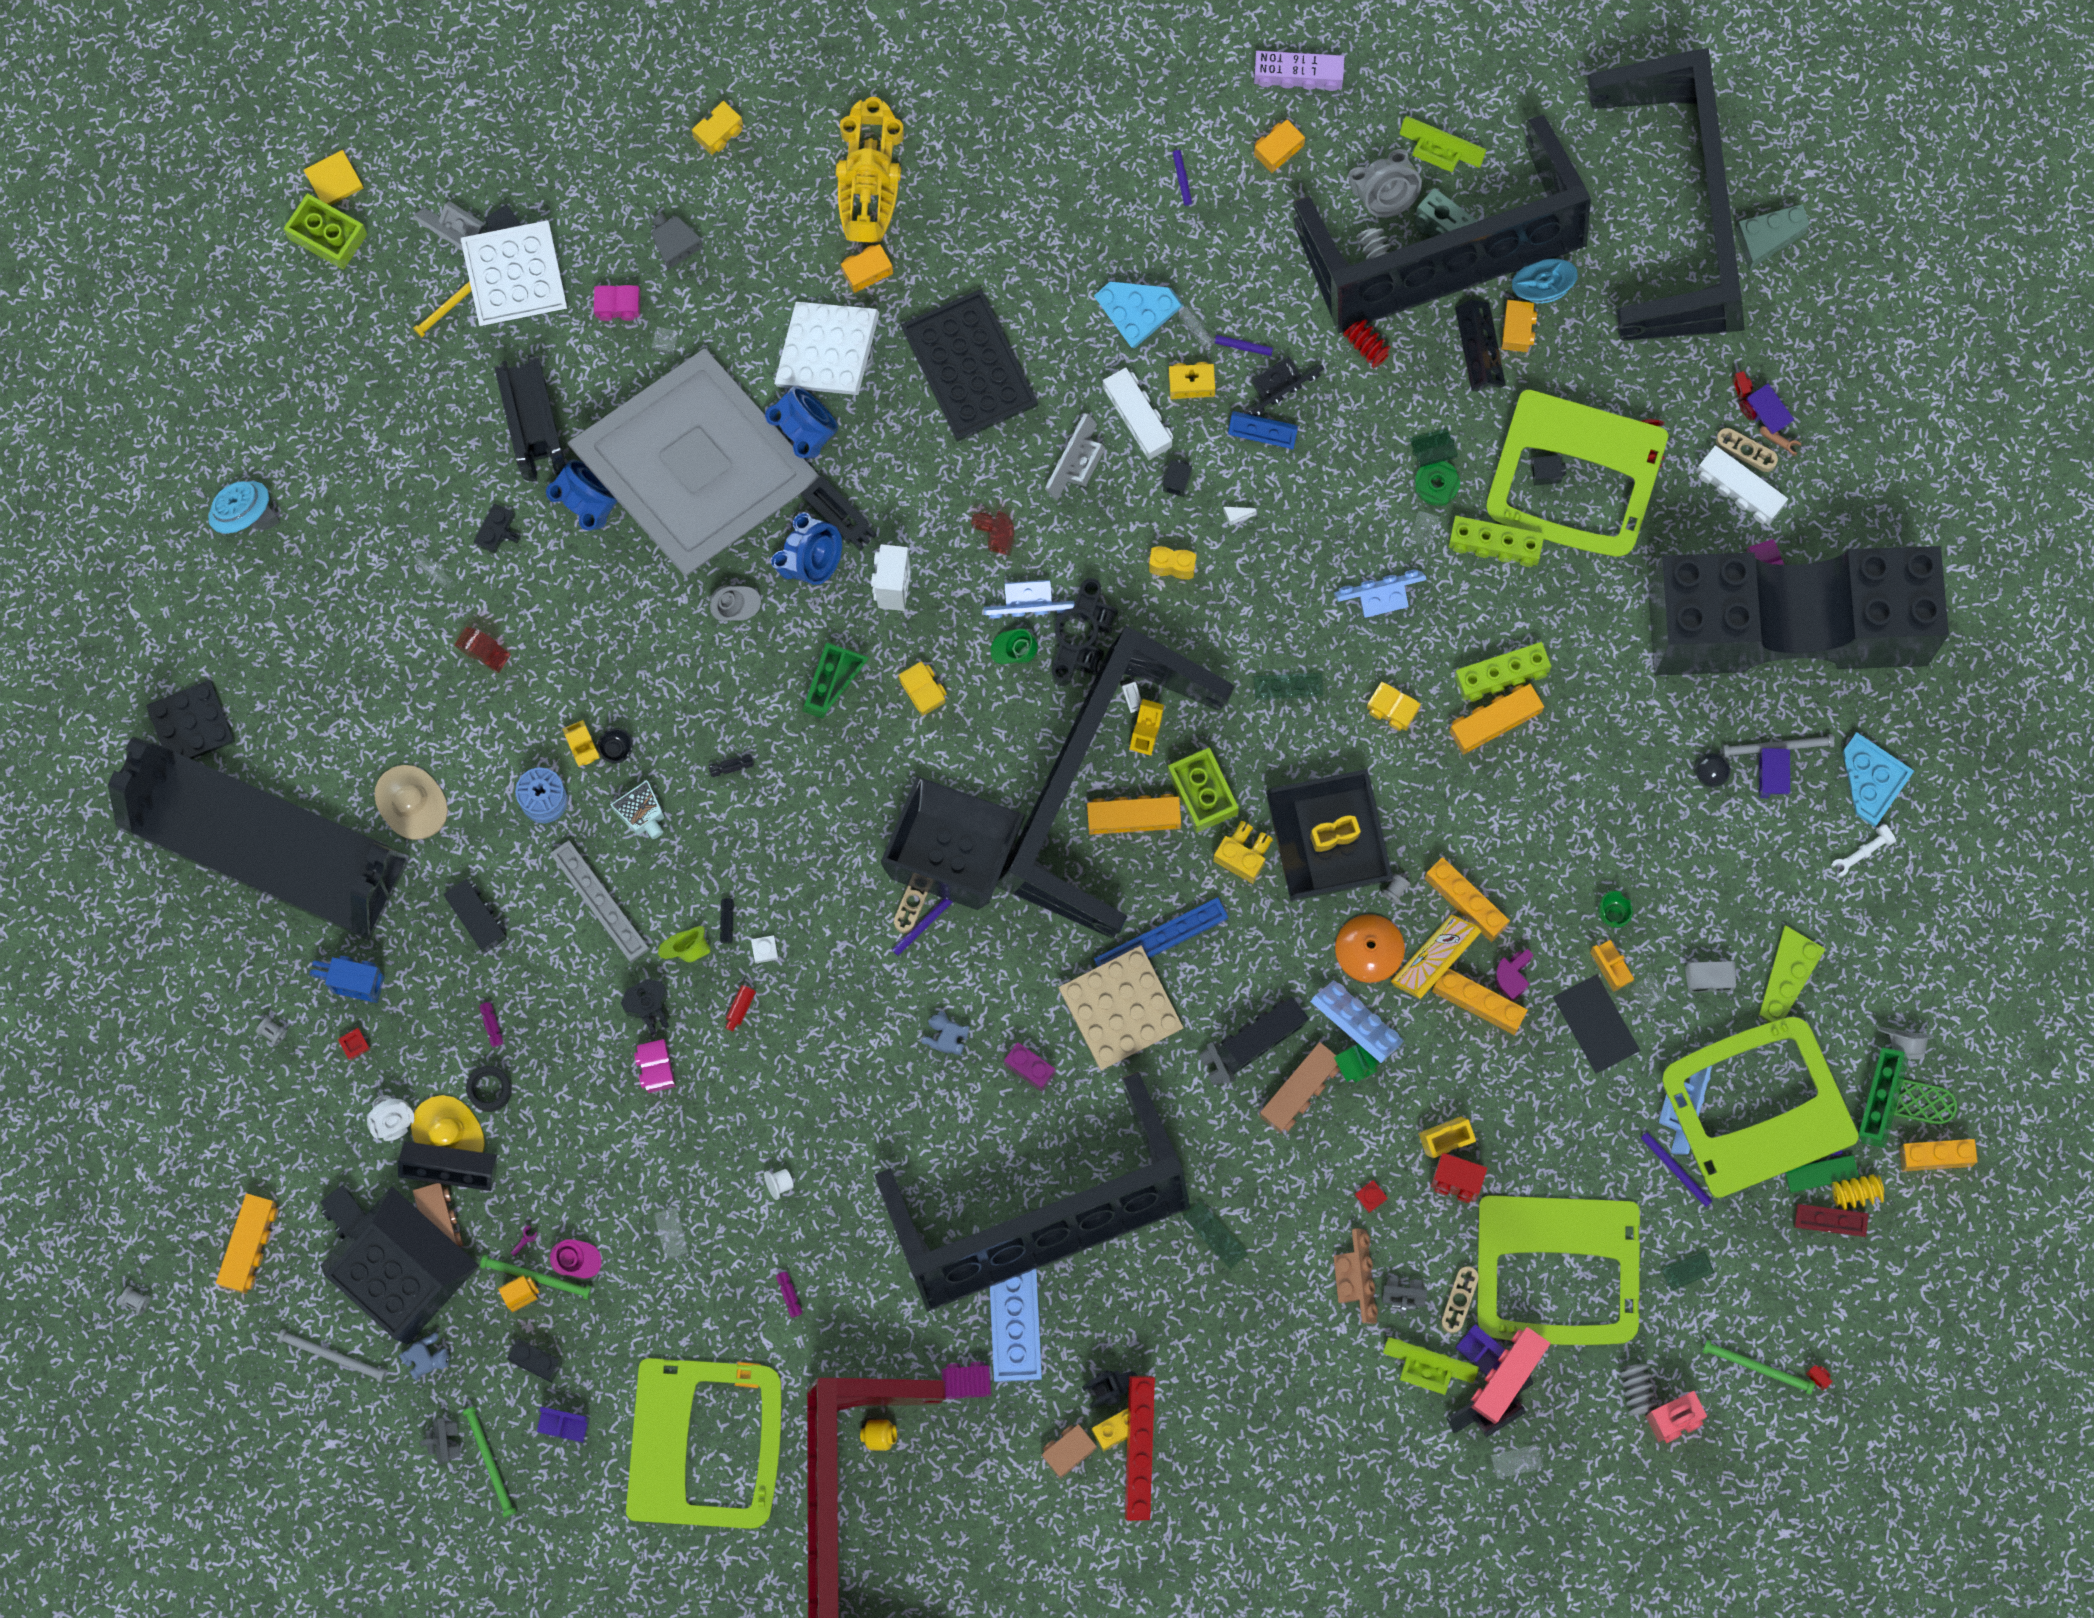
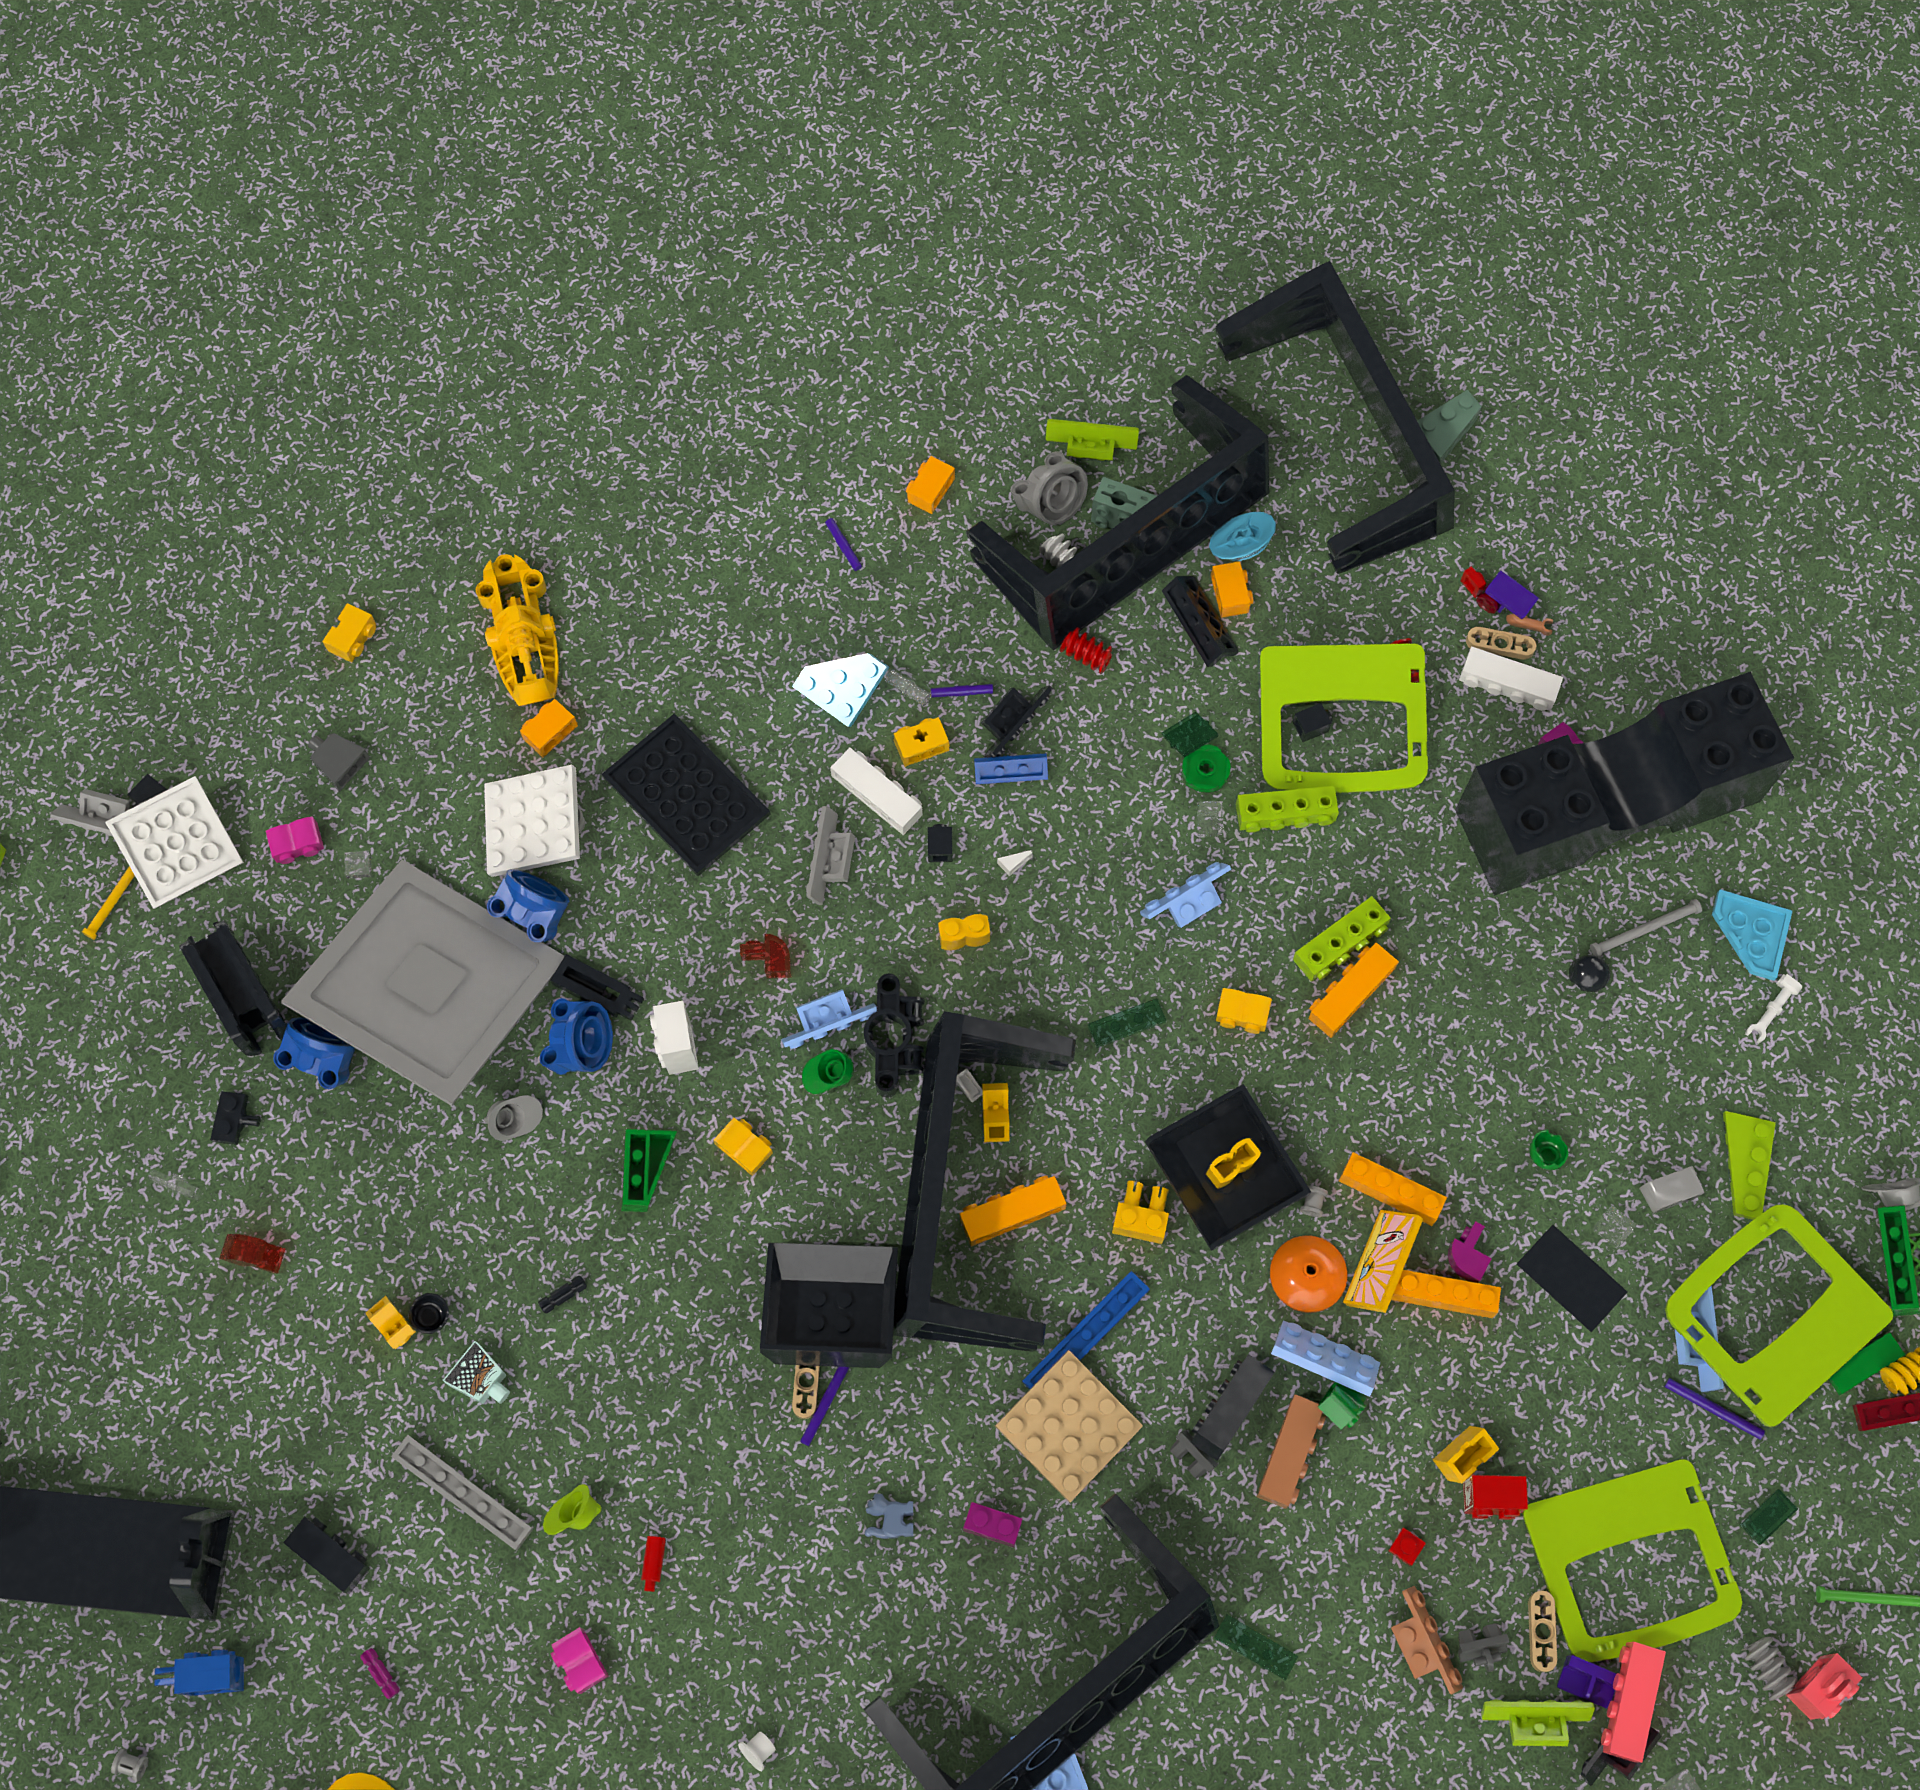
camera: 20 degrees left, 5 degrees down
(354, 1044) = (229, 1748): red plate -> none
(411, 802) = (219, 1448): tan hat -> none
(488, 1071) = (377, 1746): black tyre -> none
(546, 806) = (373, 1404): medium blue wheel -> none
(648, 1005) = (550, 1594): black hinge -> none
(726, 920) = (609, 1468): black axle -> none
(764, 949) = (660, 1486): white plate -> none
(1202, 790) = (1077, 1160): lime brick -> none
(1299, 70) = (925, 406): lavender brick -> none
(1612, 965) = (1565, 1210): light orange panel -> none
(1774, 772) = (1653, 956): dark purple panel -> none

